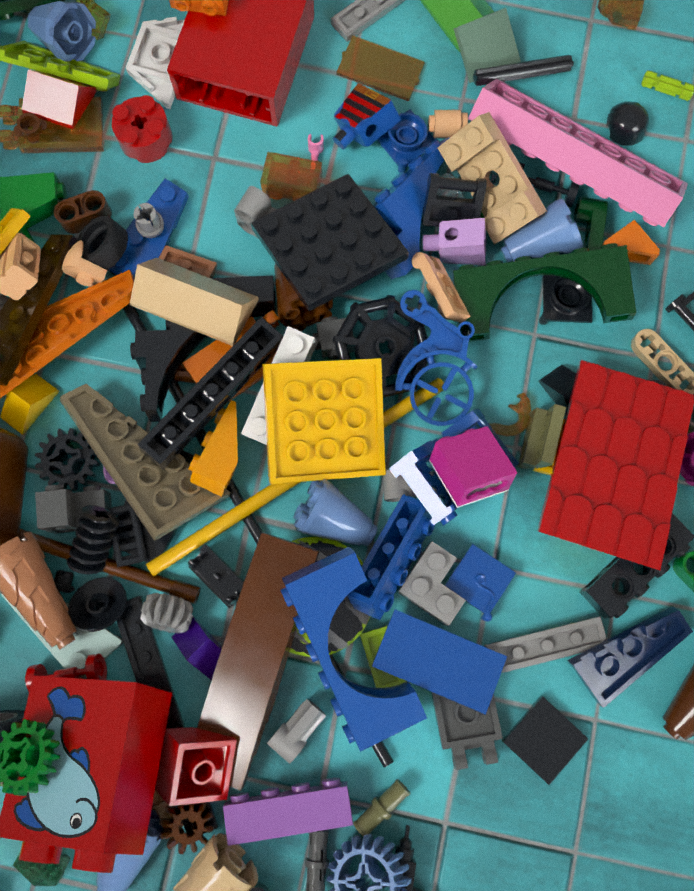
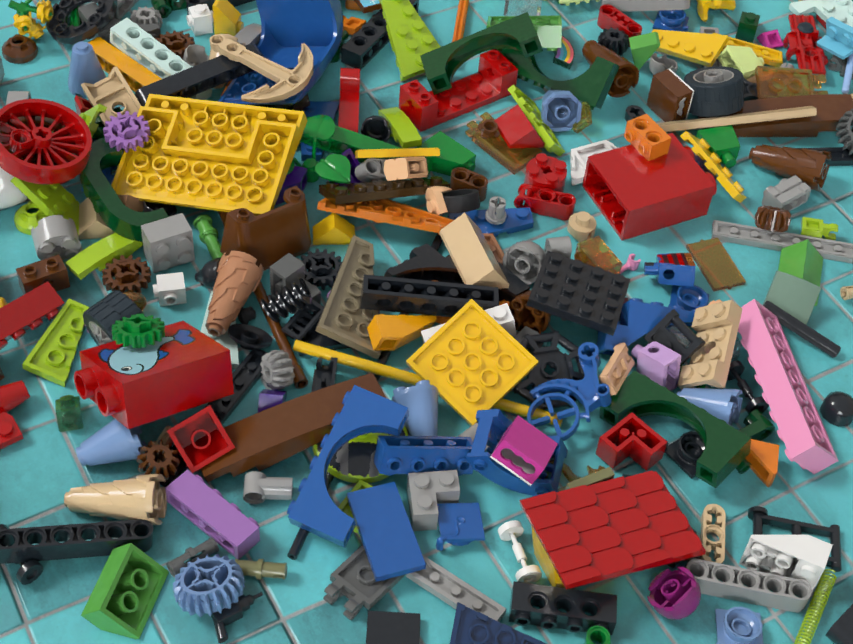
camera: 45 degrees right, 30 degrees down
(179, 146) = (546, 201): none -> red piece
(233, 151) = (581, 226): none -> tan piece
(236, 250) = (524, 260): none -> light grey cylinder
(520, 342) = (632, 439): none -> red brick
(579, 564) = (511, 531): none -> white wheel

